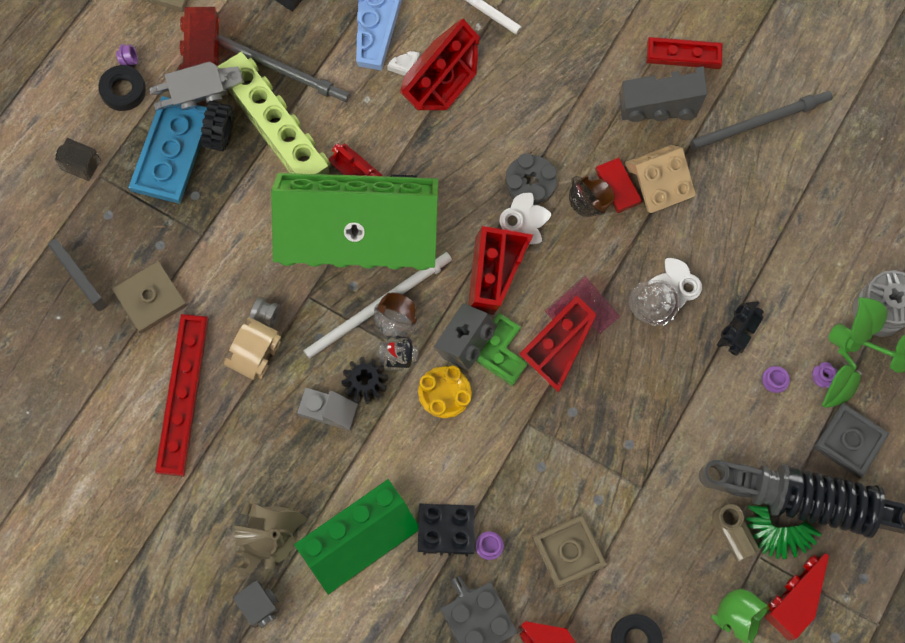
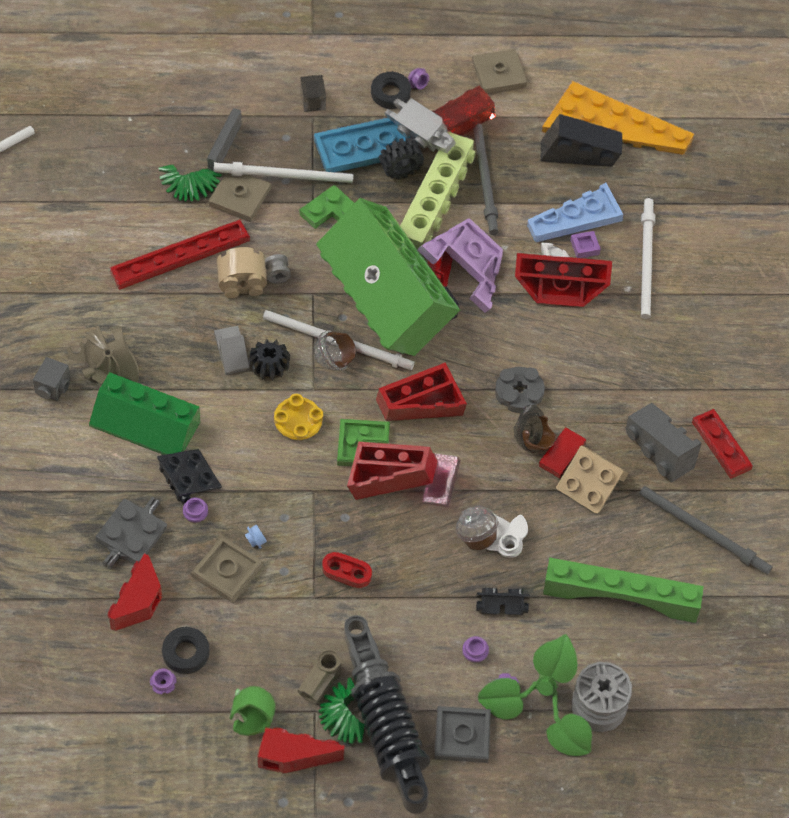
camera: 60 degrees right, 15 degrees down
(106, 339) = (189, 183): none -> green hair
(123, 281) = (238, 169): none -> white bar
(220, 218) = (327, 205): none -> bright green plate
(365, 128) = (474, 252): none -> lavender wing
(397, 353) = (305, 369): head -> none
(414, 31) = (585, 244): none -> medium lavender plate
(465, 336) = (350, 405): dark grey brick -> none
(528, 217) = (484, 402): white plate -> none
(552, 506) = (255, 536): none -> light blue plate
(634, 443) = (348, 569): none -> red plate
(788, 222) = (669, 597): none -> bright green arch

